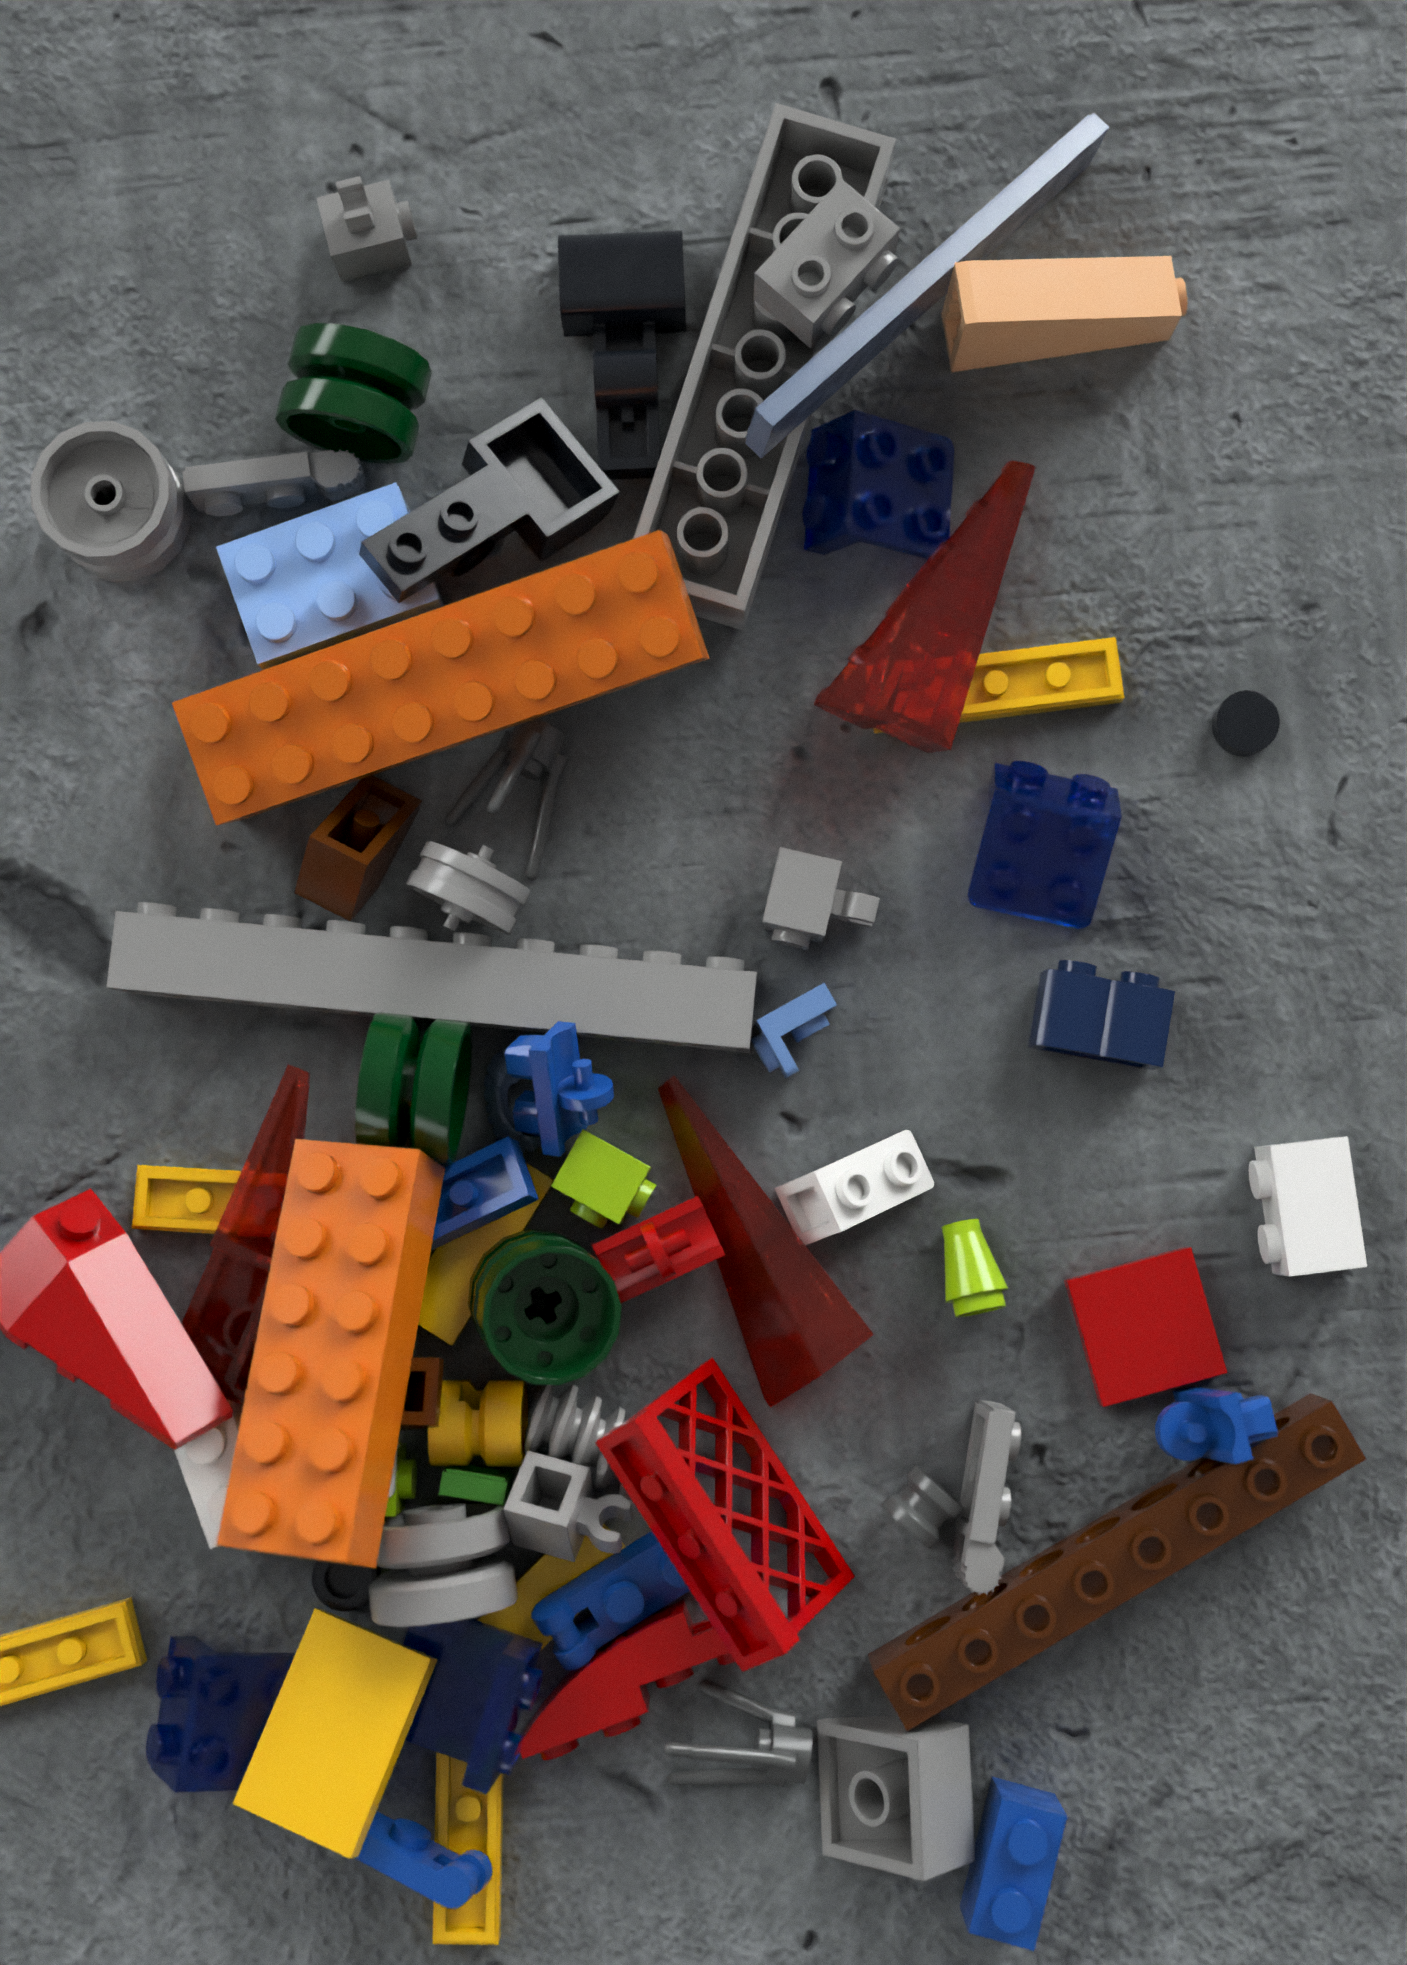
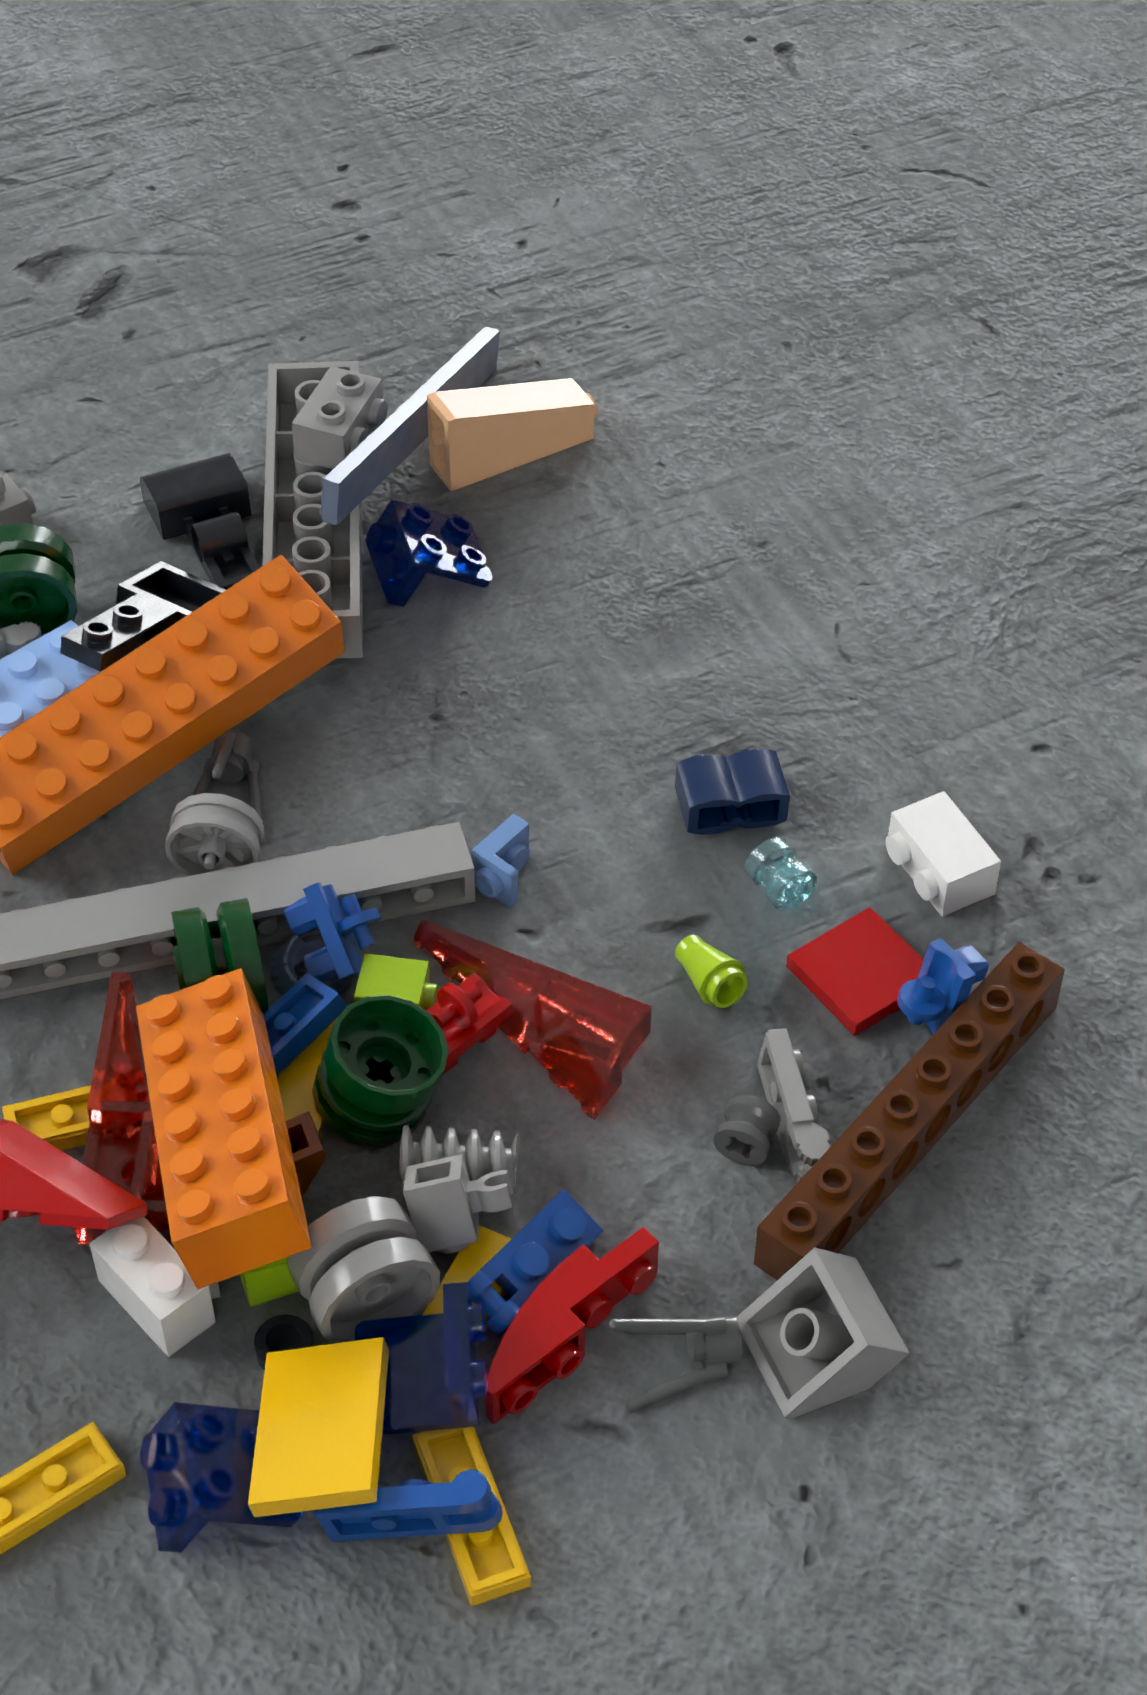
camera: 25 degrees left, 35 degrees down
(355, 846) = (113, 852): reddish brown slope -> none
(480, 1424) = (368, 1173): yellow wheel -> none
(700, 1534) = (582, 1164): red fence -> none
(806, 896) = (478, 783): light grey brick -> none
(855, 1188) = (583, 940): white bracket -> none
(925, 651) = (503, 616): clear red wedge -> none
(1013, 1863) = (943, 1348): blue brick -> none
(1044, 680) = (560, 639): yellow tile -> none
(1045, 844) = (640, 708): clear blue bracket -> none
(1111, 1179) = (784, 878): none -> clear light blue wheel
(1245, 723) = (750, 609): black tile -> none

